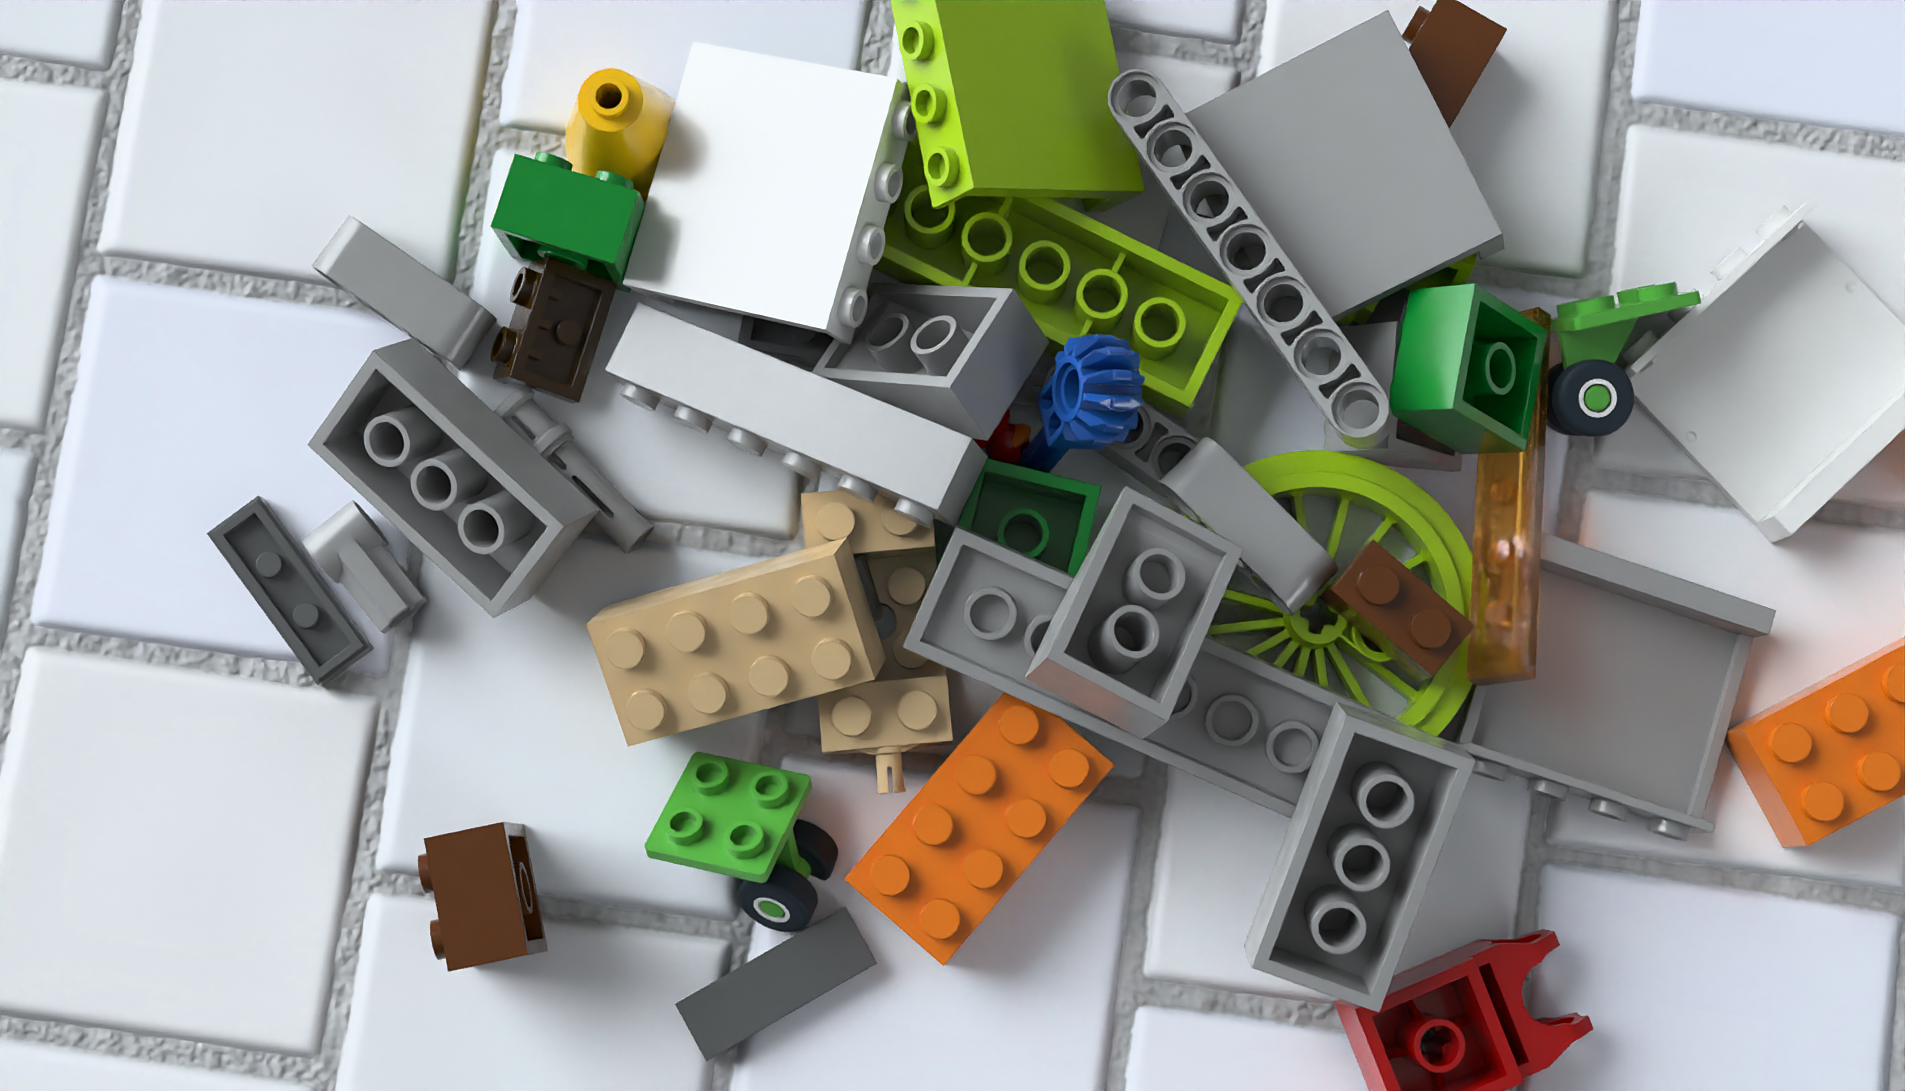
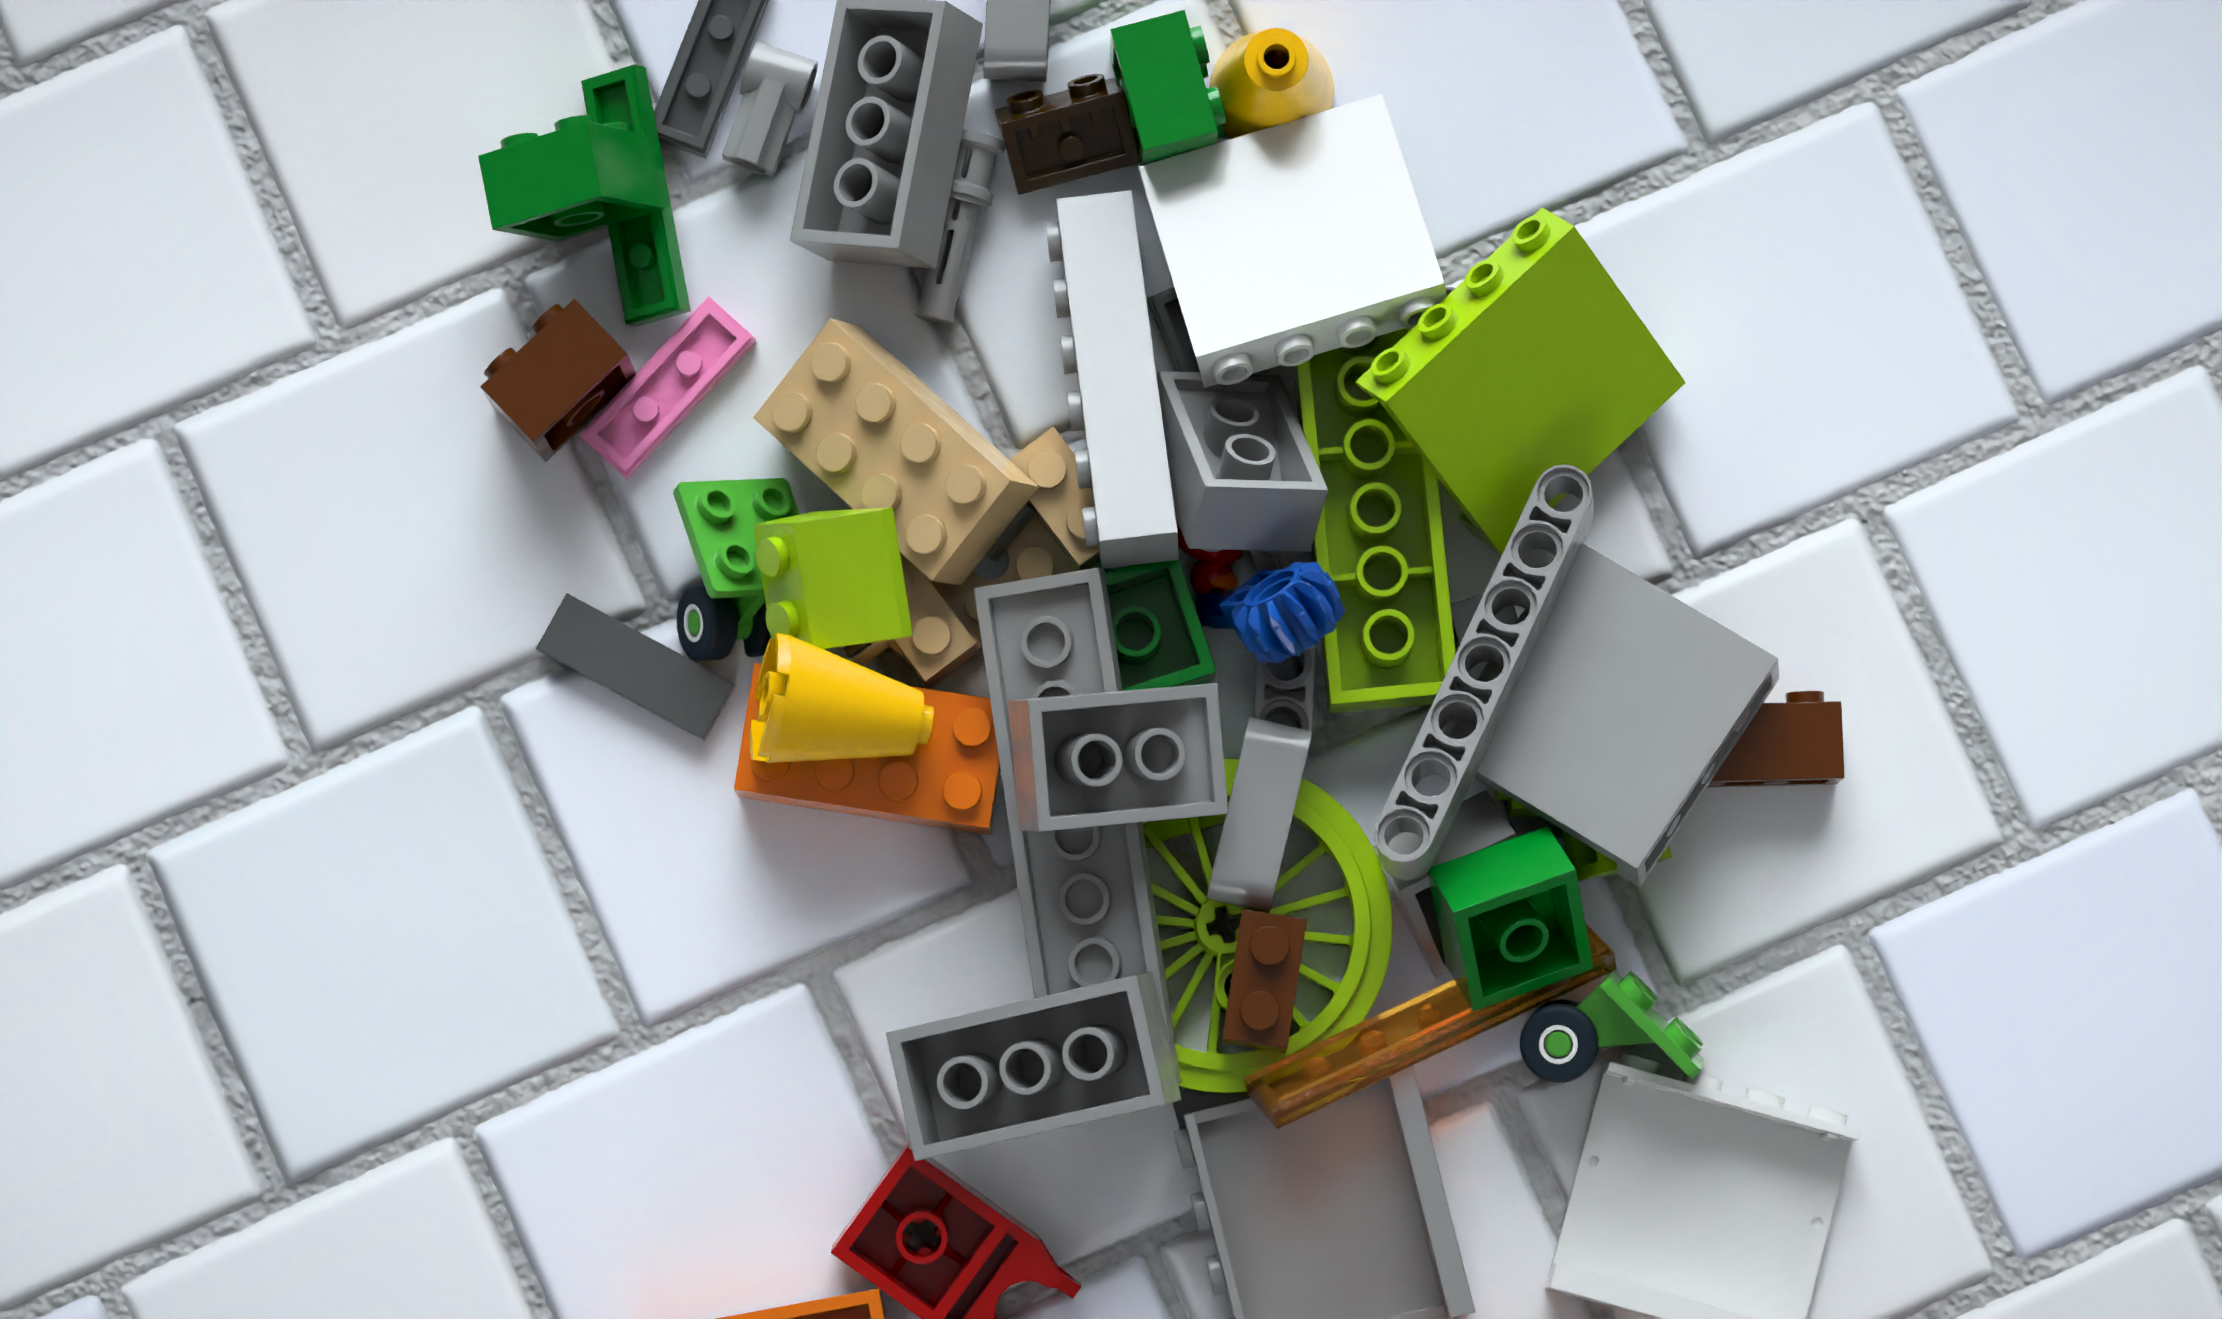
camera: 60 degrees right, 0 degrees up
(314, 776) = (570, 179): none -> green brick
(366, 728) = (645, 246): none -> green tile
(551, 804) = (668, 388): none -> bright pink tile
(817, 764) = (833, 577): none -> lime slope
(933, 838) = (831, 708): none -> yellow cone

